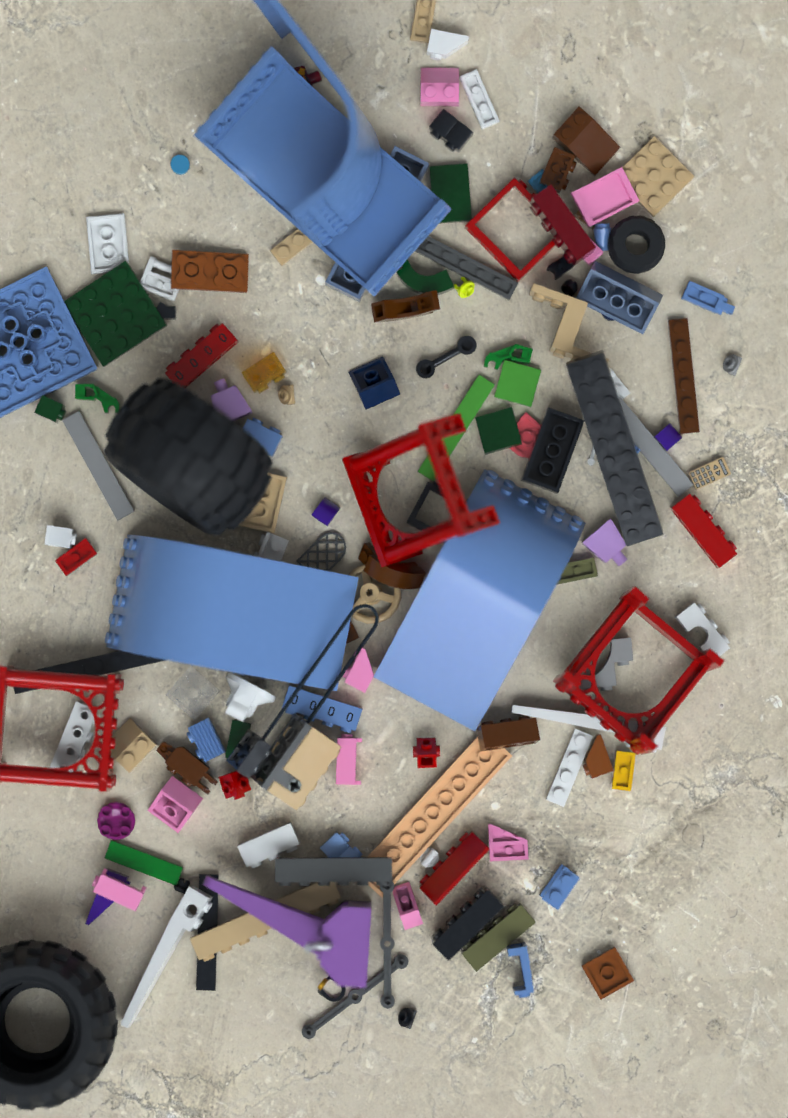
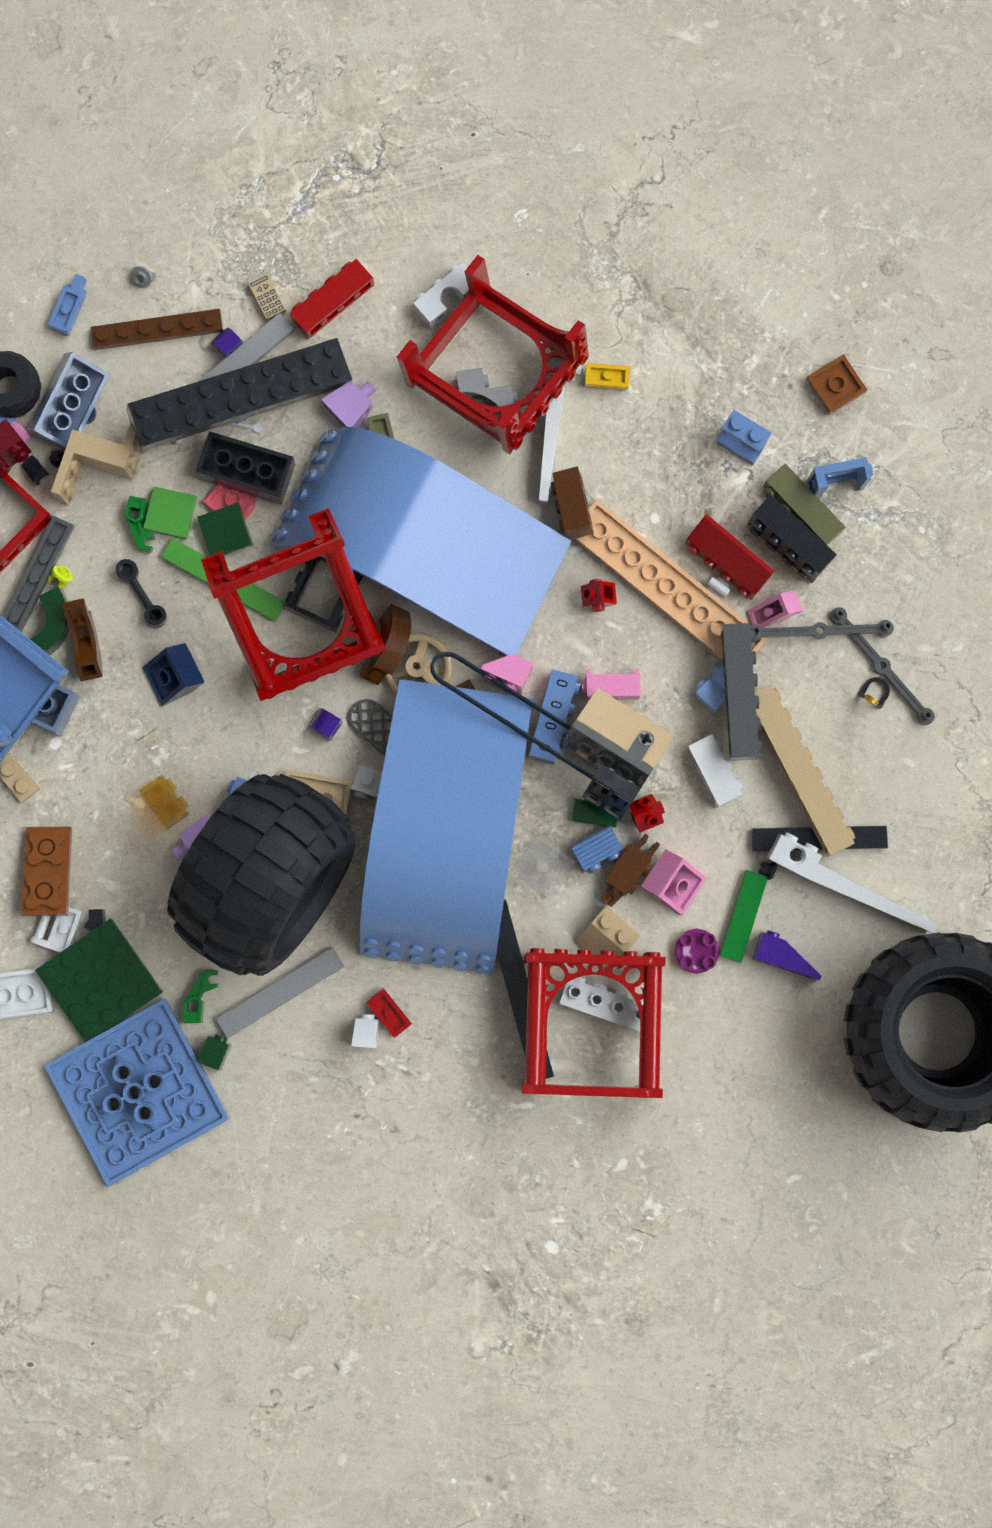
camera: 90 degrees left, 5 degrees down
(118, 891) = (780, 941): bright pink brick -> none
(202, 356) = (143, 871): red brick -> none
(244, 698) = (545, 803): white piece -> none
(286, 395) = (190, 775): tan plate -> none
(337, 940) = (816, 679): medium lavender piece -> none
(406, 1017) = (902, 605): black plate -> none
(506, 845) = (699, 501): bright pink wing -> none
(569, 767) = (607, 437): white plate -> none
(597, 759) = (595, 405): dark orange slope -> none

